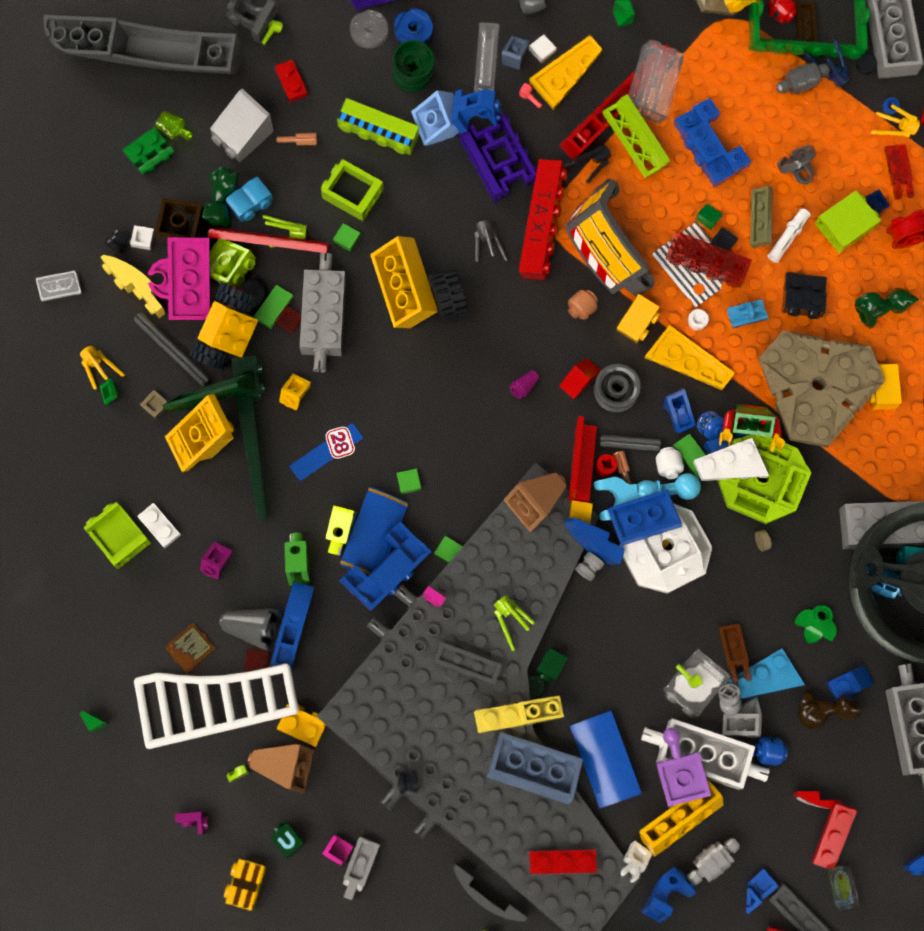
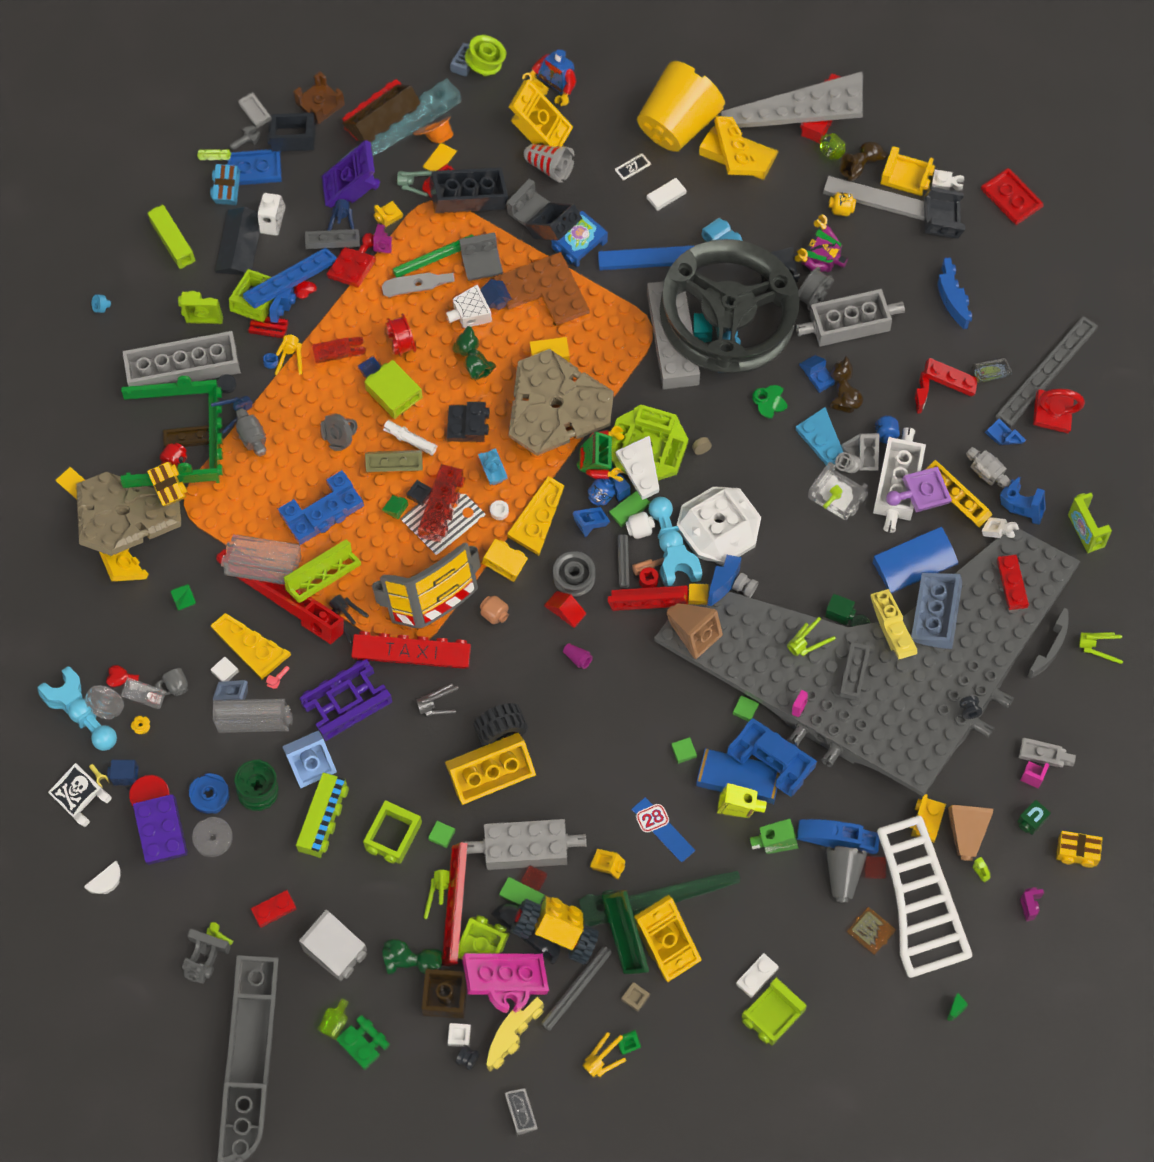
camera: 90 degrees left, 10 degrees down
(215, 560) = (785, 915): magenta bracket -> none
(249, 199) = (411, 930): dark azure brick -> none
(300, 139) = (339, 891): nougat axle -> none
(473, 104) = (307, 728): blue tile -> none
(644, 517) = (699, 536): blue tile -> none
(734, 650) = (805, 461): reddish brown hinge -> none

